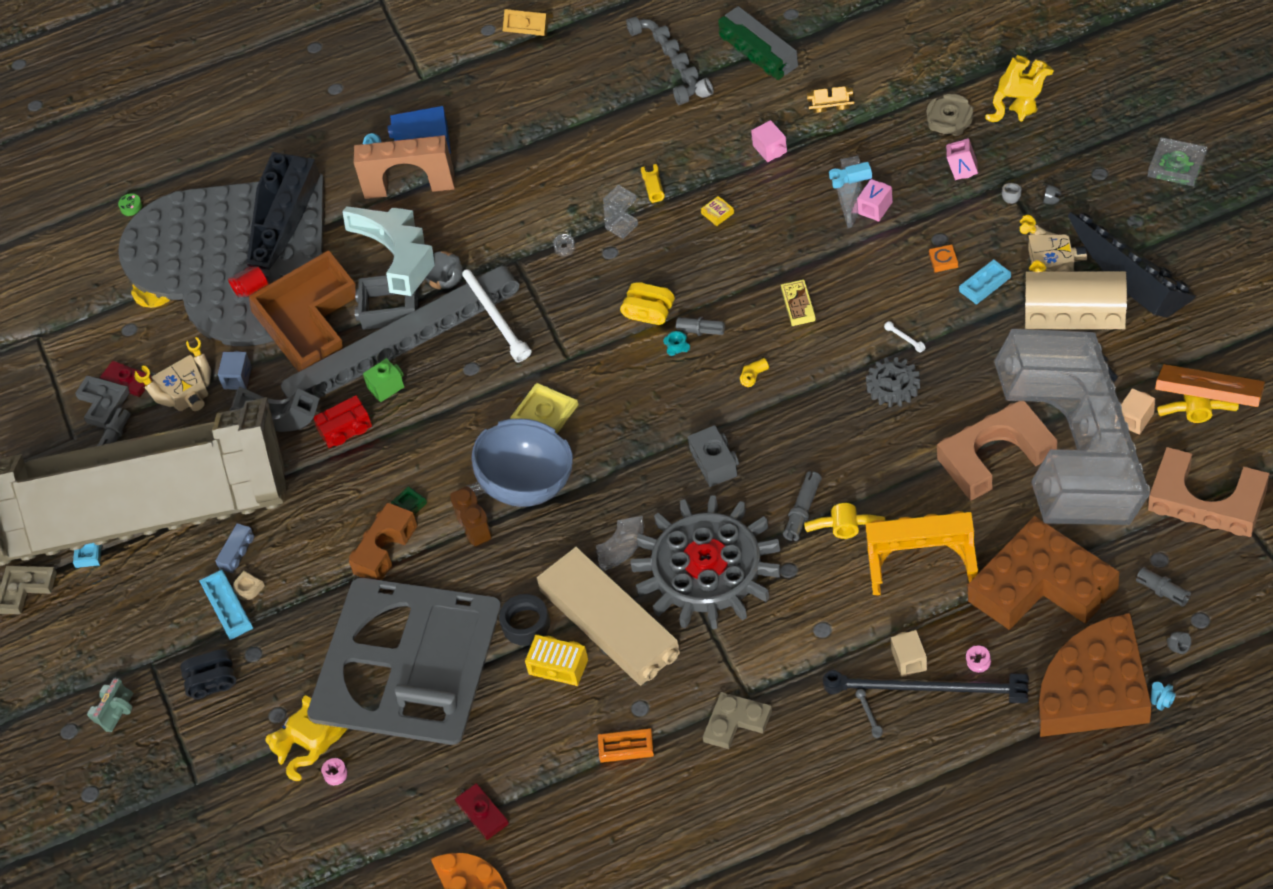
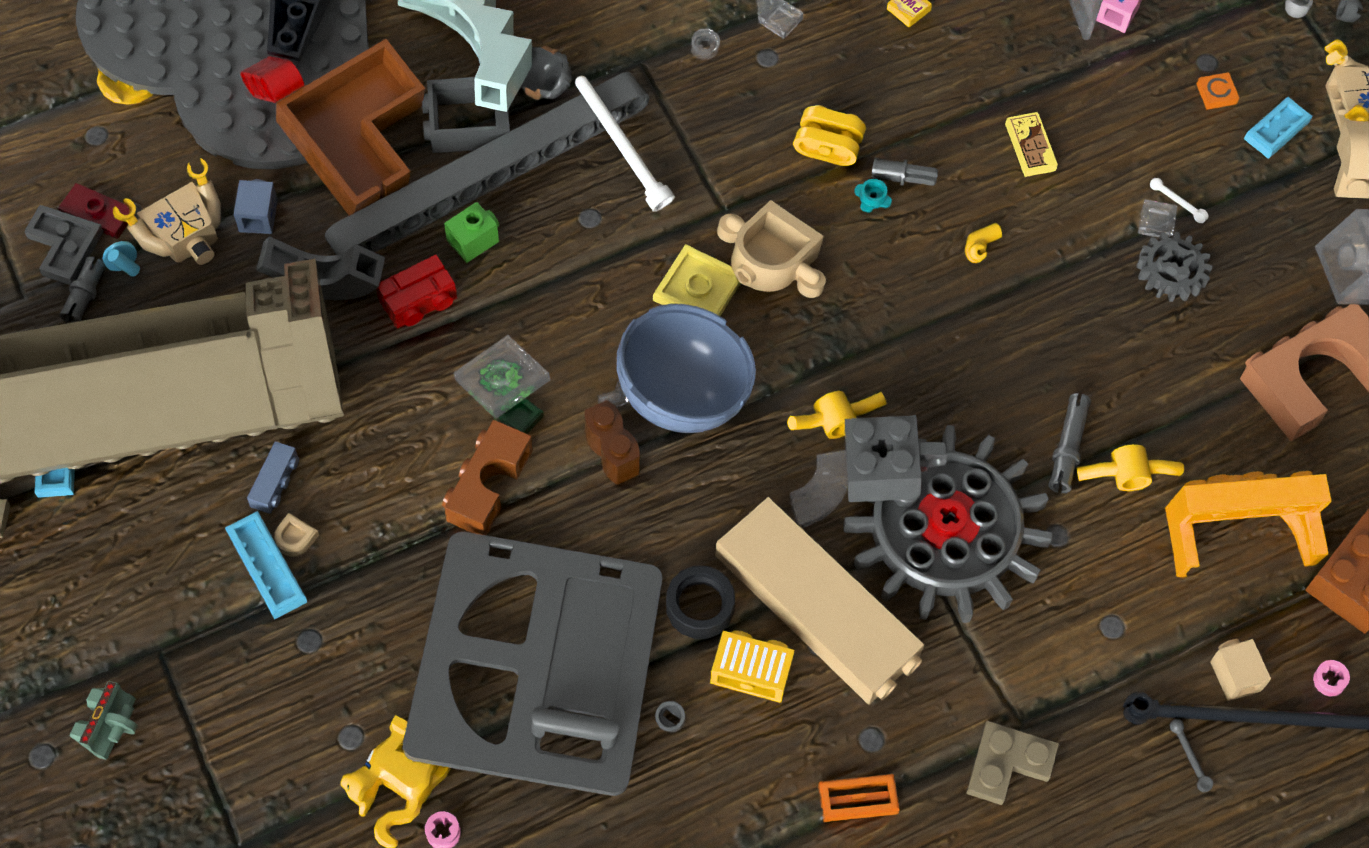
camera: 15 degrees left, 10 degrees up
(140, 408) = (121, 257): none -> medium azure plate
(208, 674) = (265, 683): black brick -> none
(397, 476) = (501, 376): none -> clear tile
(500, 689) = (674, 708): none -> dark grey hinge
(598, 383) = (773, 250): none -> tan piece
(632, 492) = (832, 410): none -> yellow piece
(659, 516) = (887, 458): none -> dark grey hinge
(717, 467) = (941, 382): dark grey brick -> none
(886, 348) = (1157, 218): none -> clear tile

